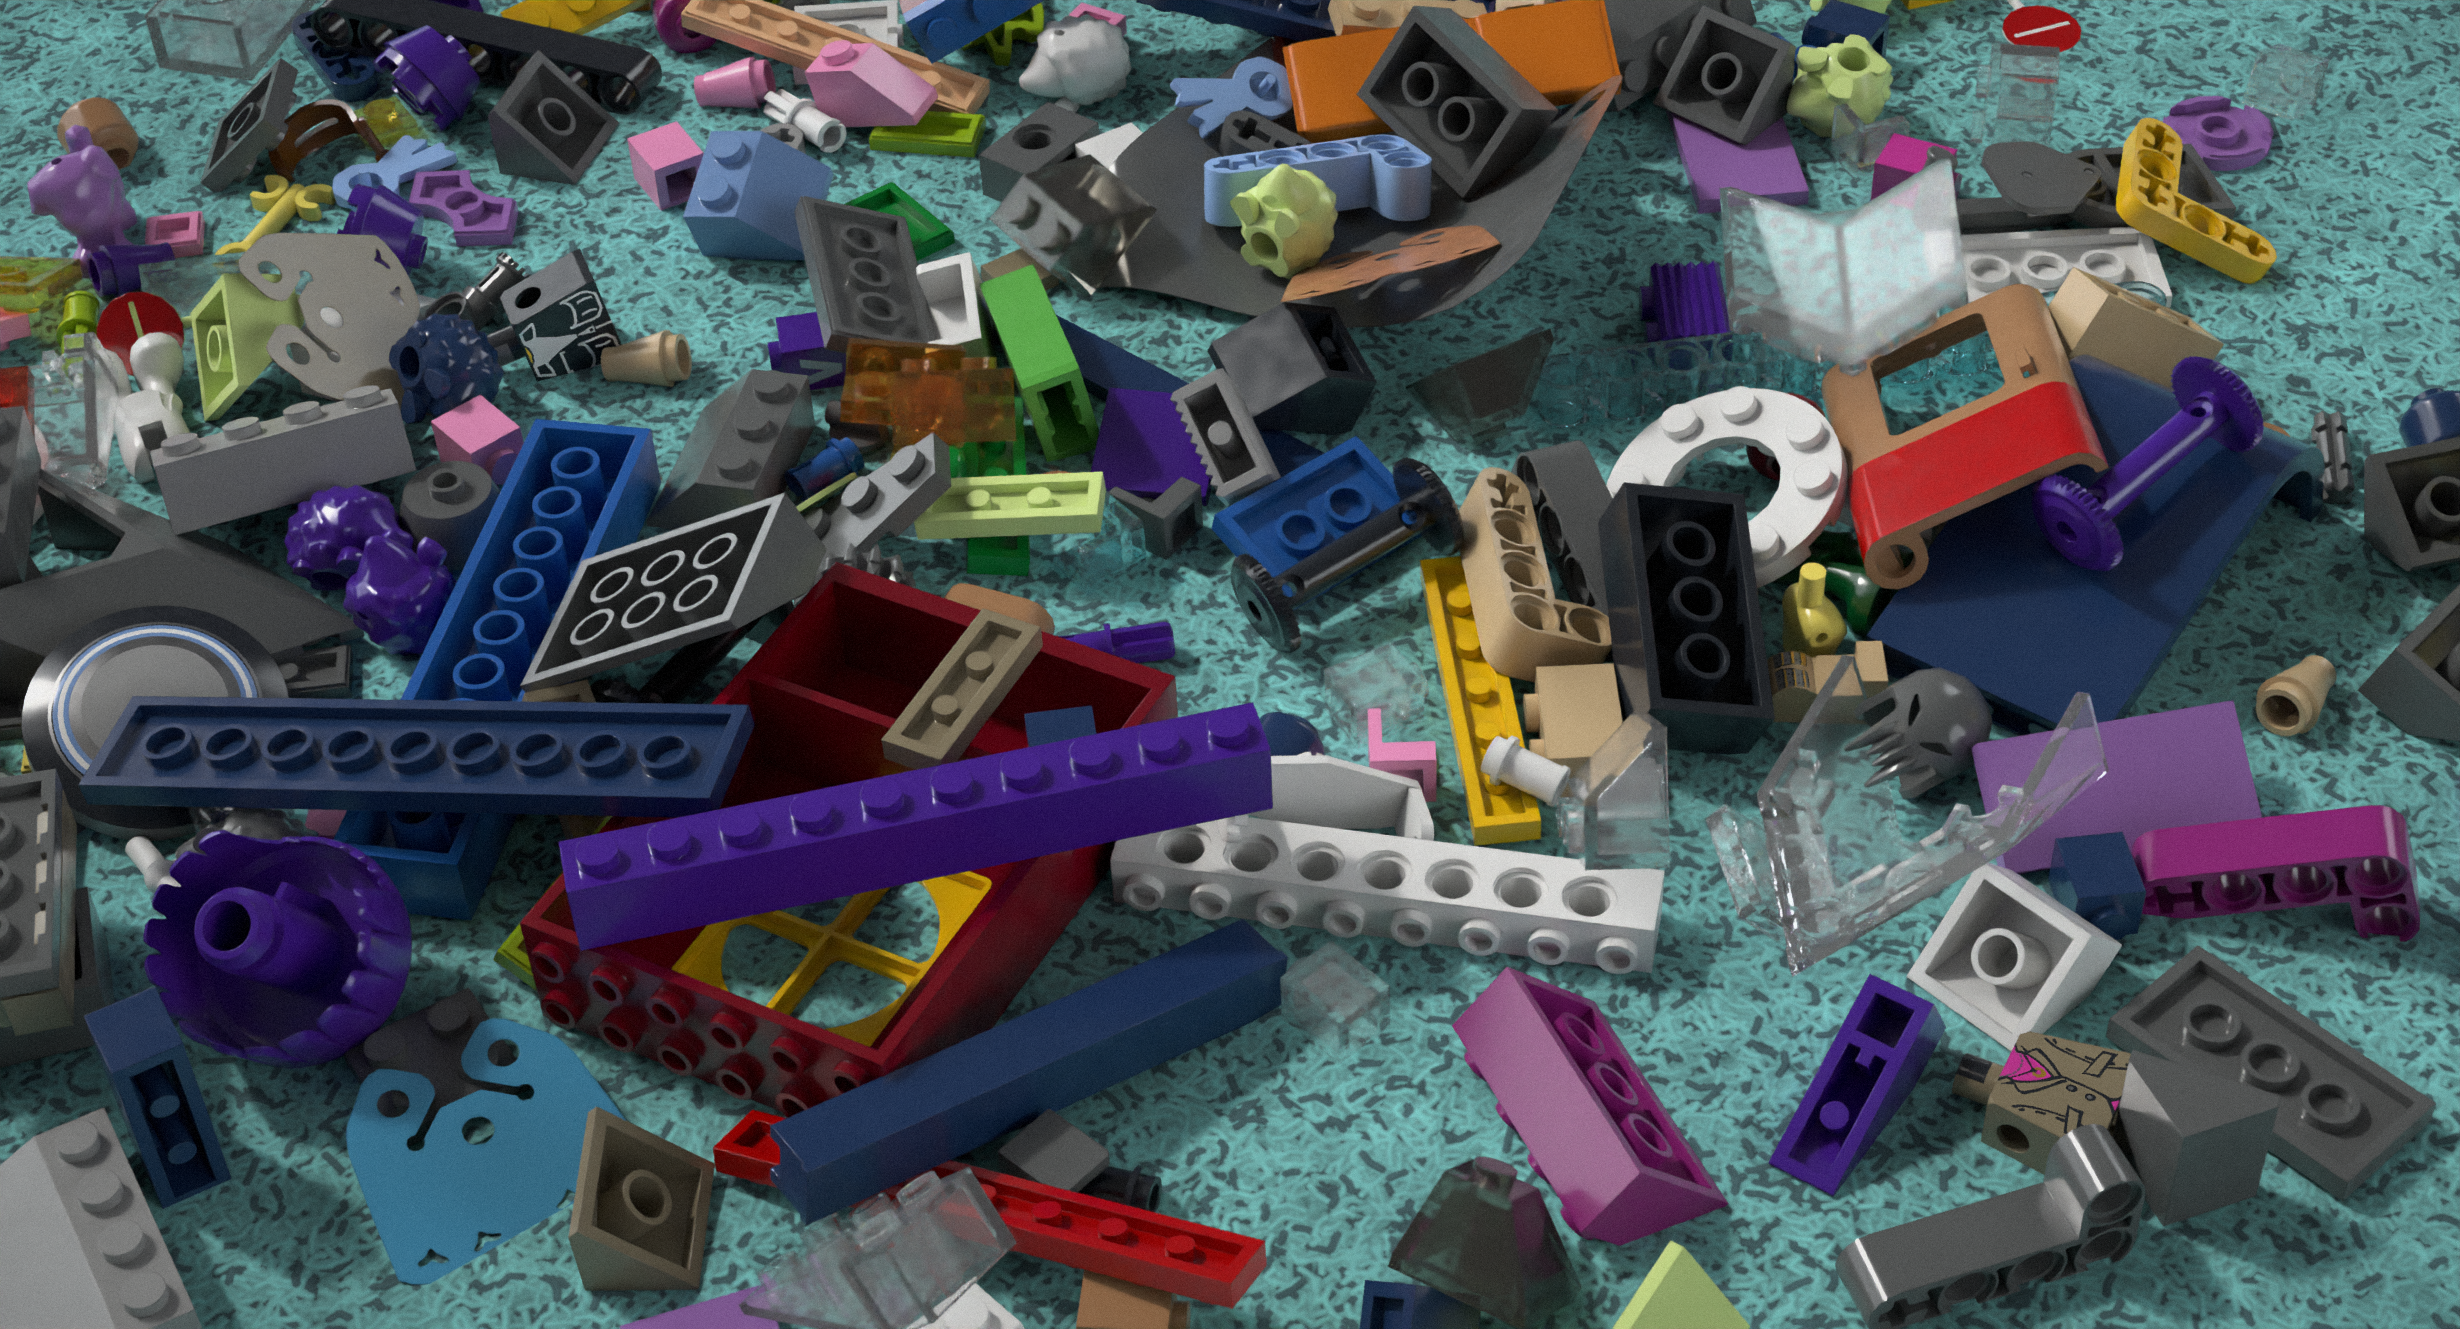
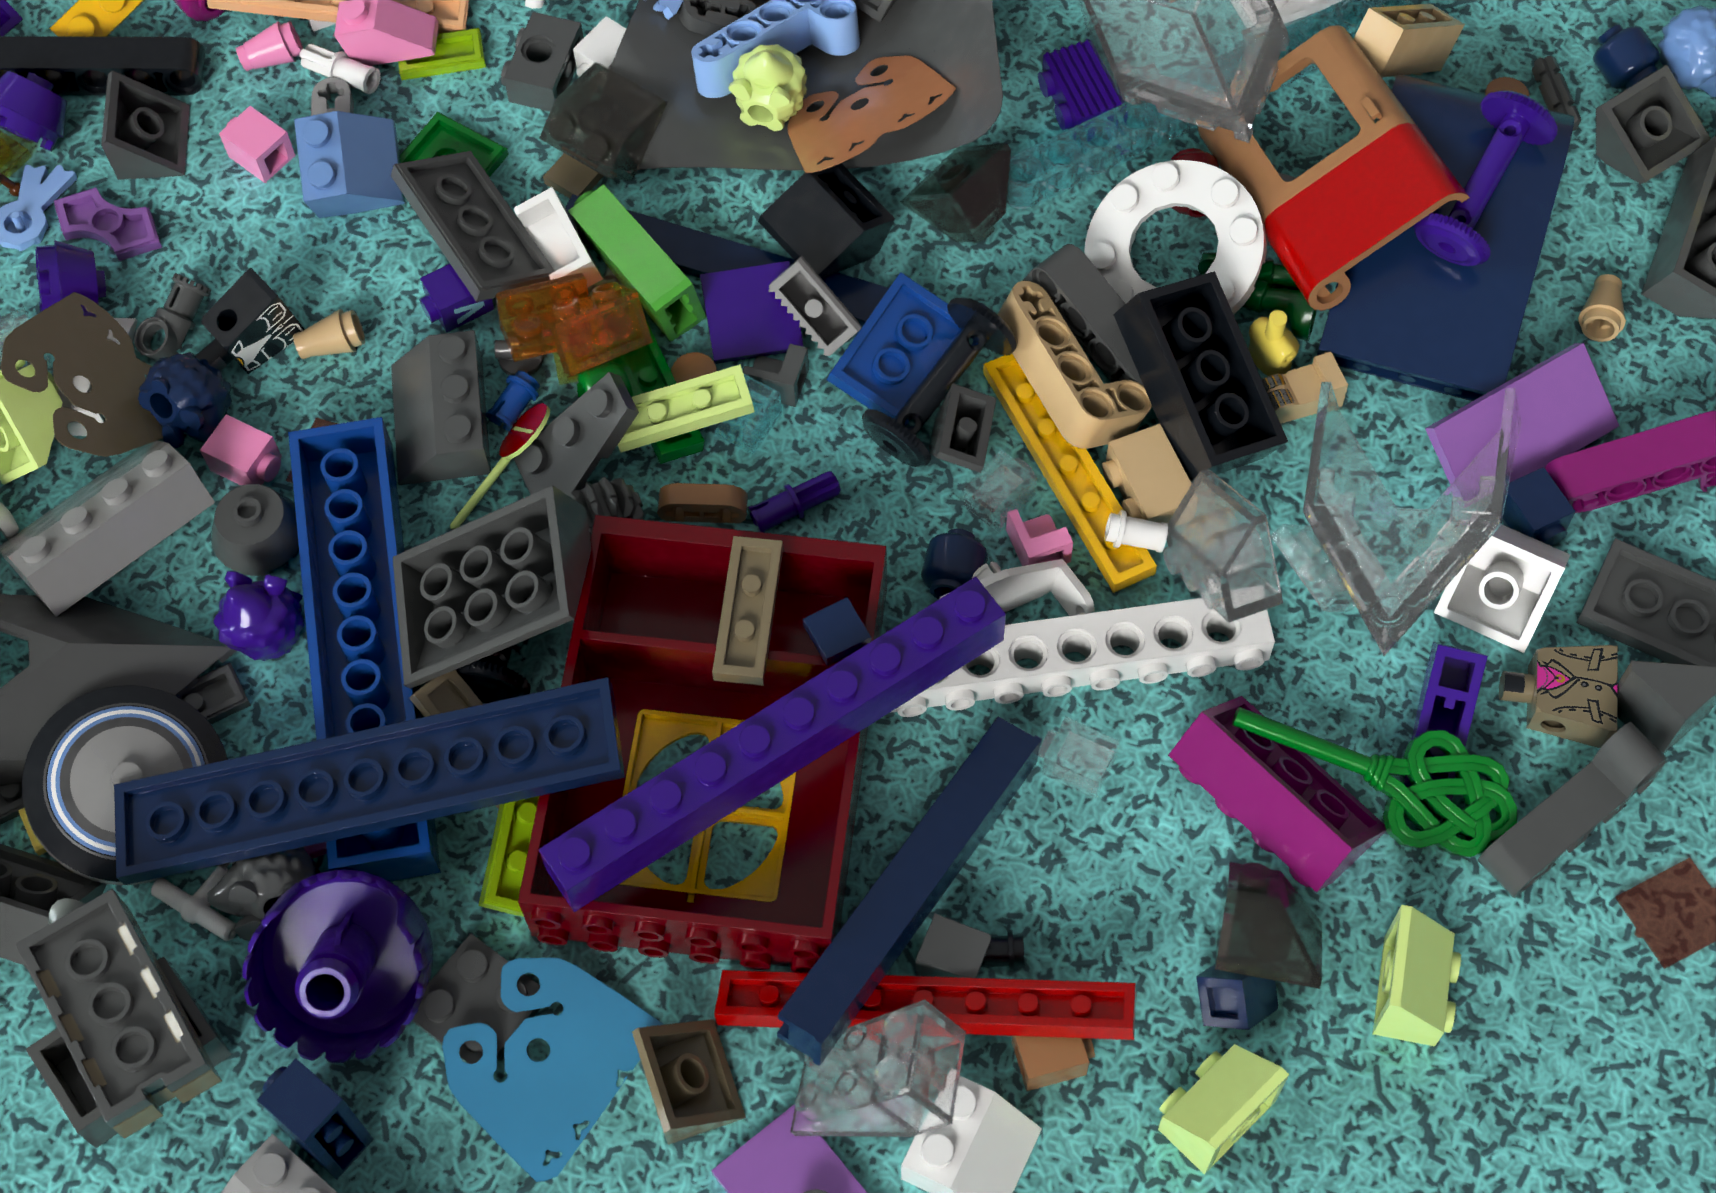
camera: 20 degrees left, 20 degrees up
(331, 533) = (185, 575): dark purple animal -> none
(1353, 608) = (963, 428): none -> dark grey slope
(1801, 1148) = (1478, 794): none -> green piece
(1923, 729) = (1387, 416): dark grey helmet -> none

